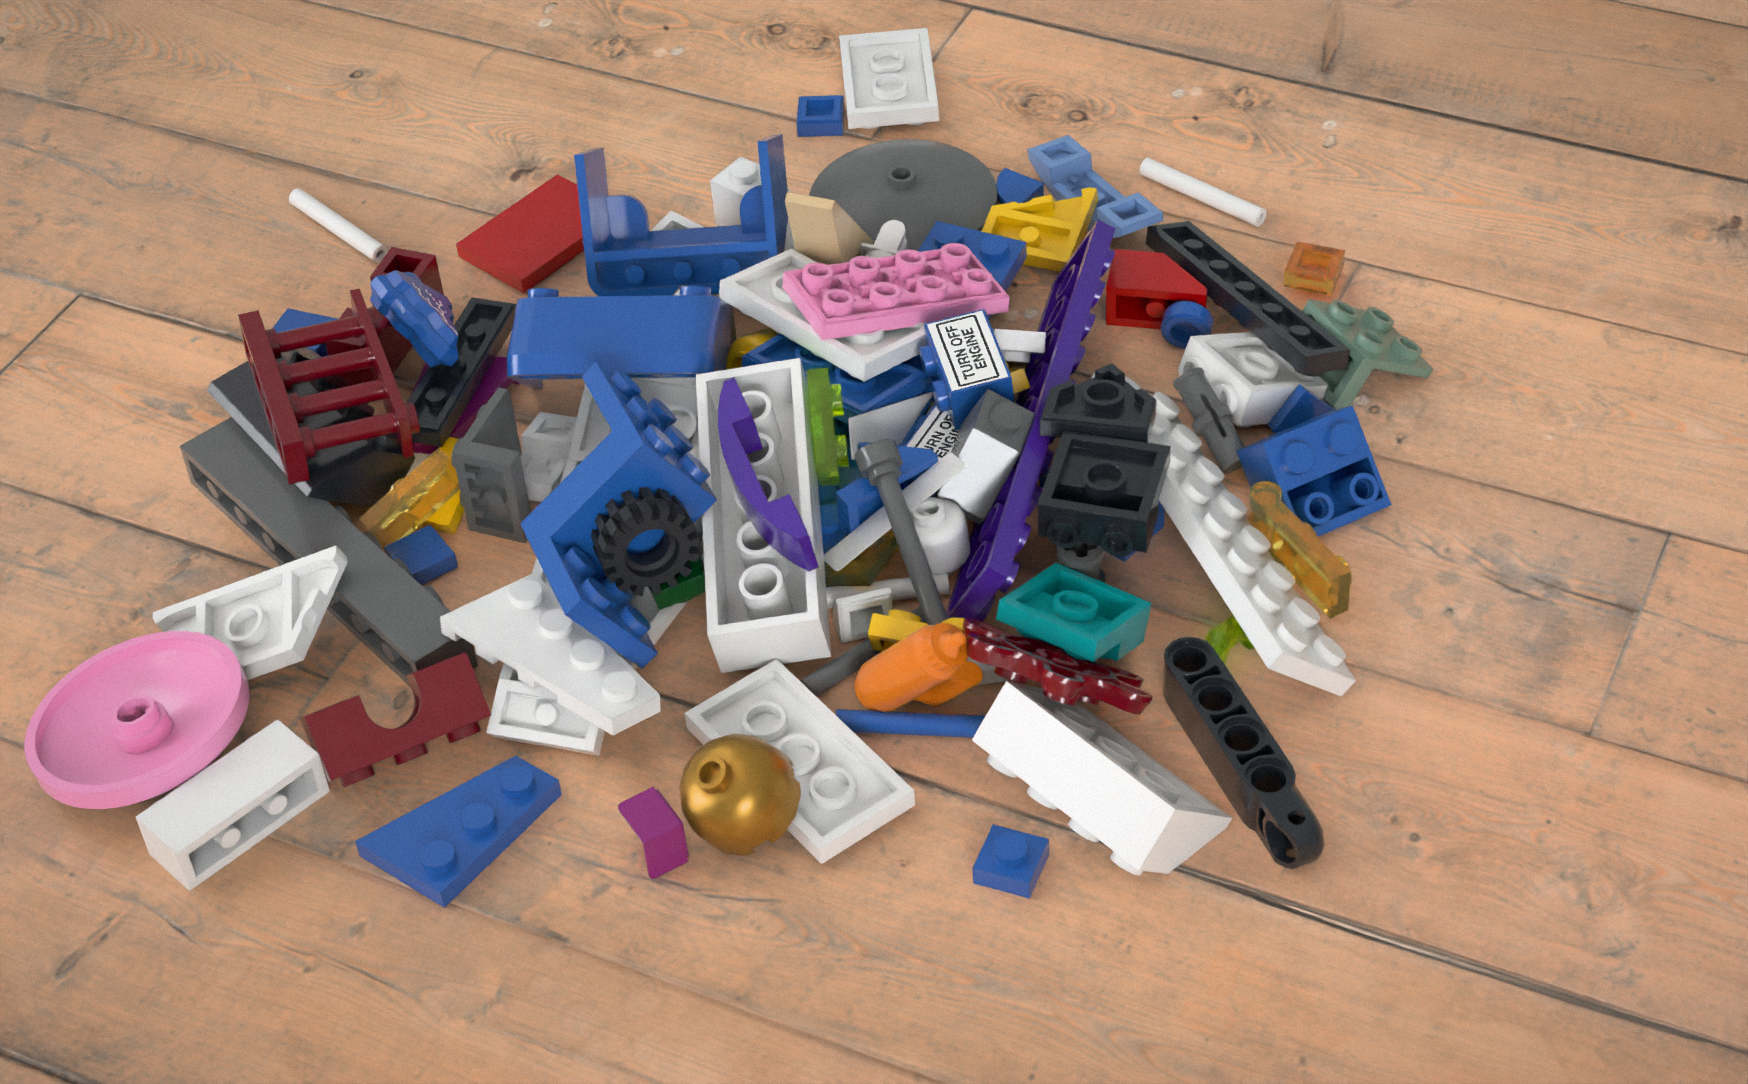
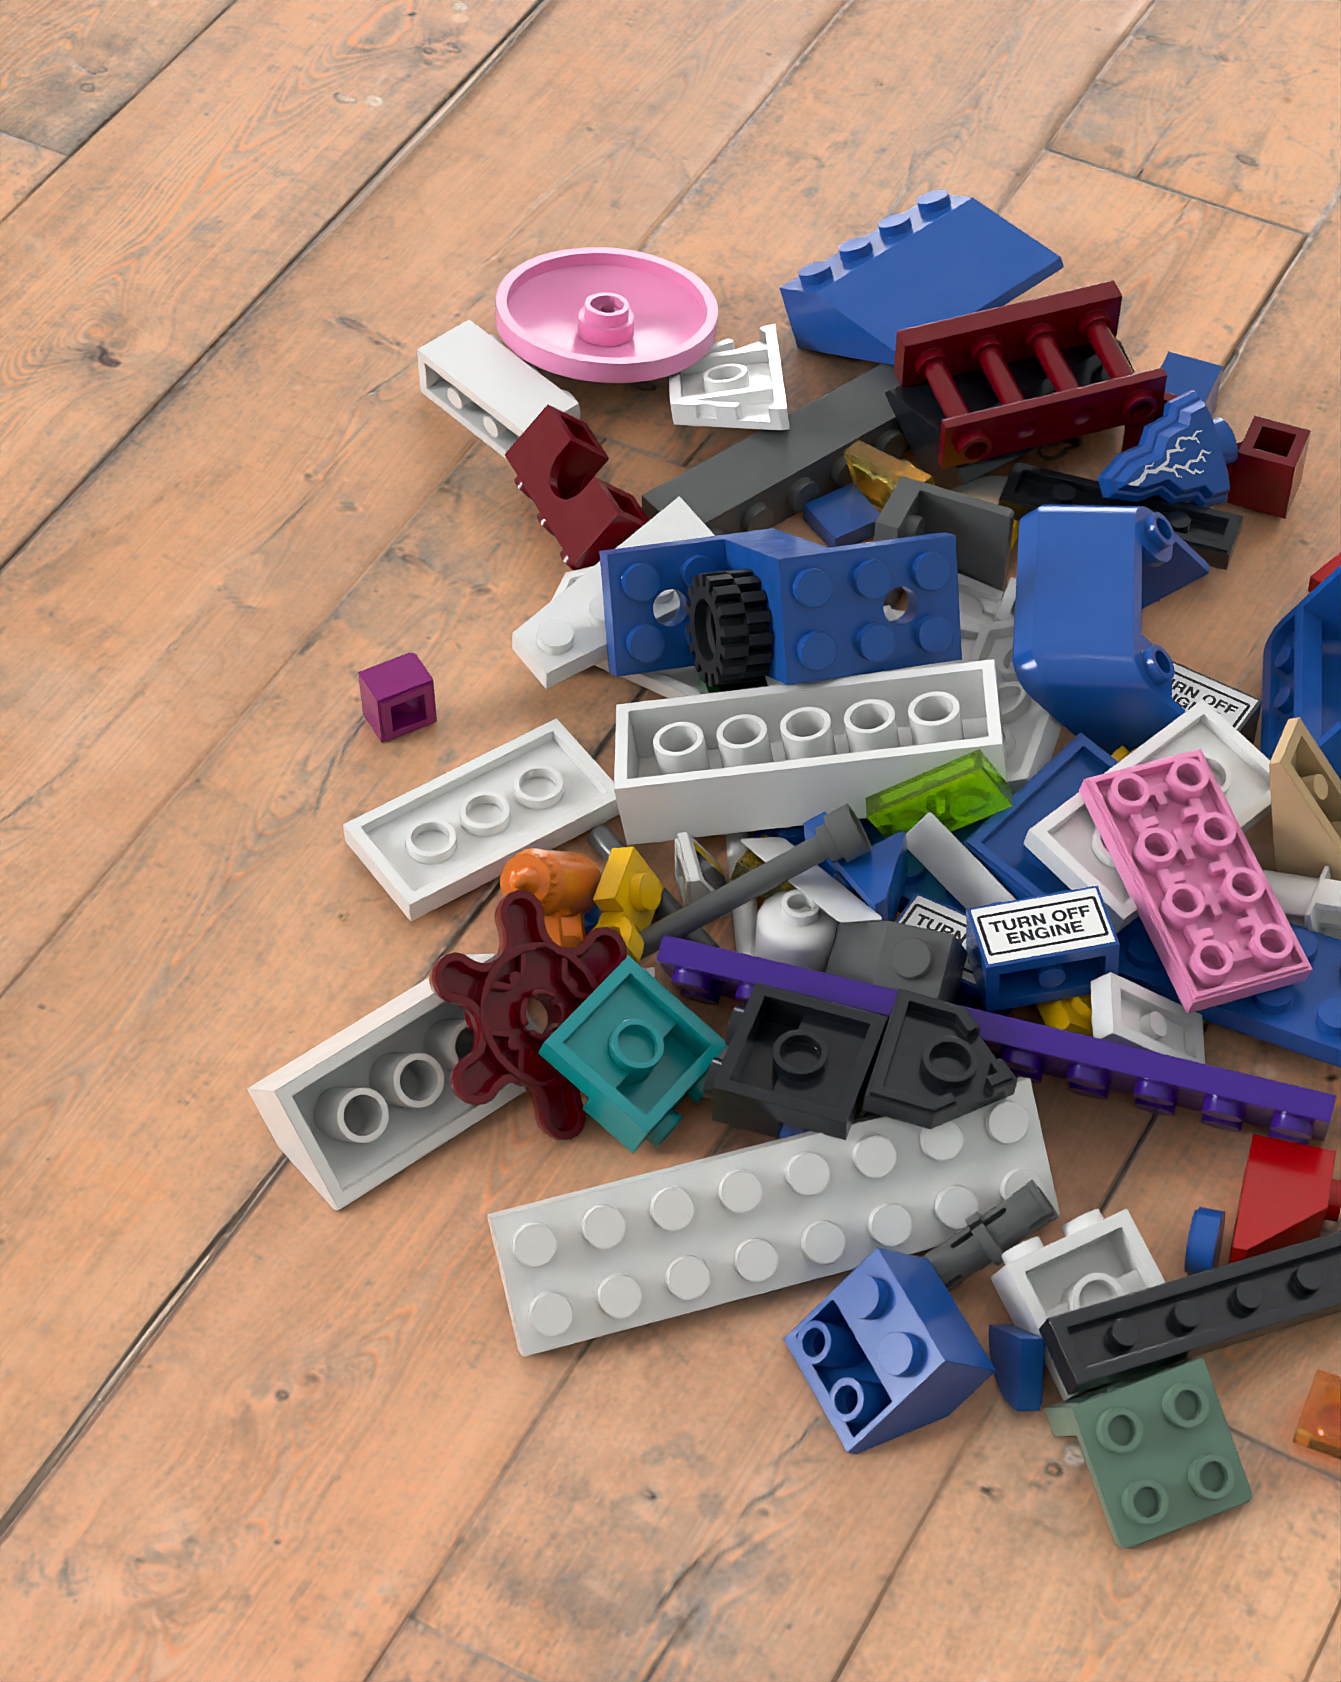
camera: 90 degrees right, 5 degrees up
(146, 493) = (913, 270): none -> blue slope
(461, 831) = (448, 567): blue wing -> none
(739, 793) = (419, 743): pearl gold cylinder -> none
(774, 520) = (796, 696): dark purple slope -> none
(1011, 861) = (314, 999): blue plate -> none
(1240, 751) = (378, 1207): black piece -> none
(1297, 548) = (744, 1314): clear yellow plate -> none

